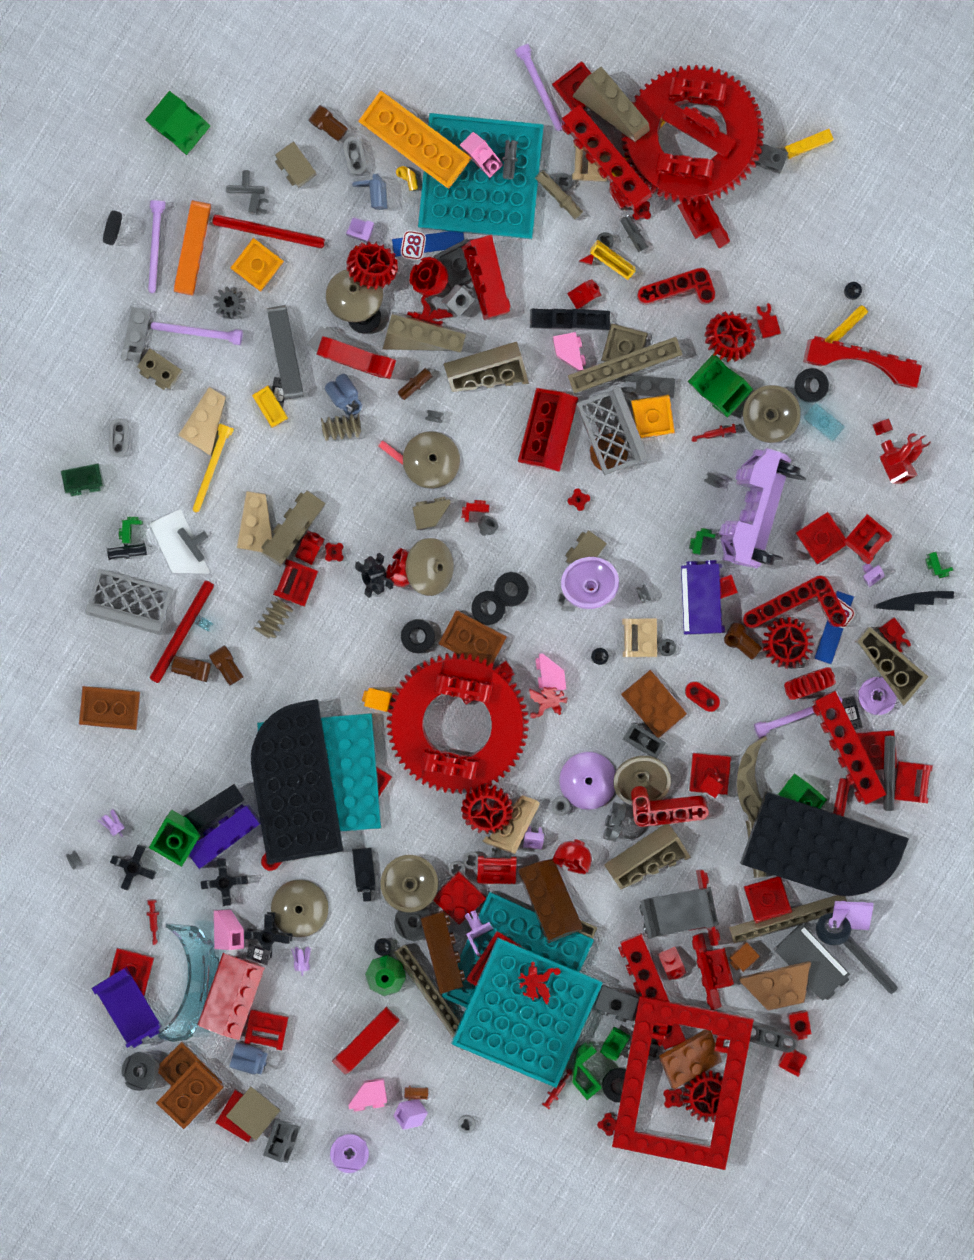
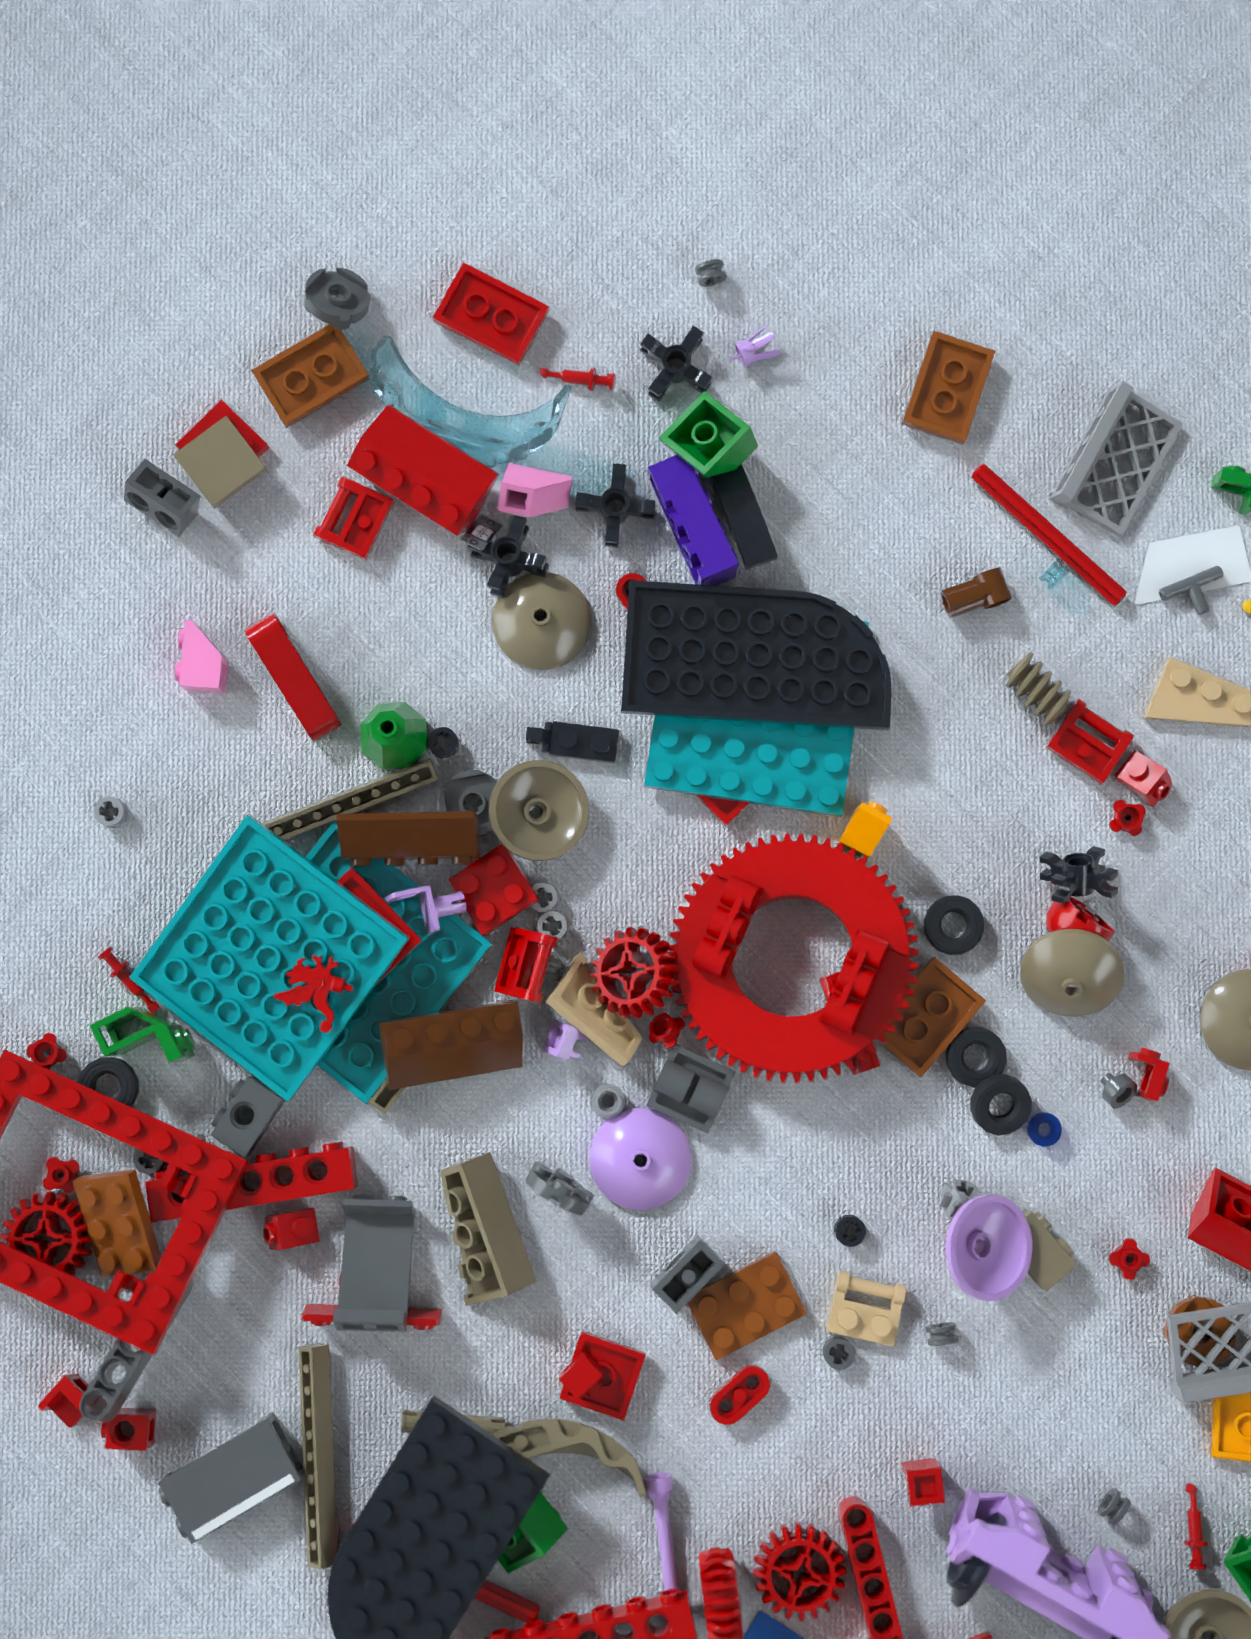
camera: 100 degrees right, 5 degrees down
(126, 551) = (1202, 475): black pin -> none
(127, 1007) = (447, 299): dark purple panel -> none
(190, 1094) = (277, 365): dark orange plate -> none
(195, 669) = (981, 542): reddish brown piece -> none
(248, 1059) = (312, 477): sand blue piece -> none
(293, 528) = (1186, 757): dark tan wedge -> none
(301, 961) = (446, 598): lavender piece -> none
(357, 1161) = (107, 588): lavender plate -> none
(410, 1114) = (151, 722): lavender panel -> none
(415, 1093) = (184, 739): dark orange pin -> none
(430, 514) = (1160, 994): dark tan slope -> none
(514, 783) = (660, 1025): none -> red plate
(519, 555) = (1054, 1133): none -> clear blue plate
(543, 762) = (691, 1088): none -> dark grey plate
(550, 700) = (793, 1127): piece -> none
(551, 673) = (837, 1139): bright pink slope -> none
(574, 856) = (517, 1103): red cylinder -> none
(614, 1044) = (179, 1096): green bracket -> none
(655, 778) = (603, 1258): dark tan dish -> none
(693, 807) = (554, 1340): red beam -> none
(696, 543) = (1009, 1449): green bracket -> none
(701, 598) = (912, 1438): dark purple panel -> none
(714, 970) = (262, 1301): red bracket -> none
(737, 637) = (819, 1491): reddish brown piece -> none
(743, 957) = (270, 1358): dark orange brick -> none
(767, 899) = (359, 1425): red tile -> none
(779, 986) = (203, 1411): medium nougat wing -> none
(836, 926) = (281, 1543): plate -> none
(870, 965) = (203, 1578): dark grey axle -> none

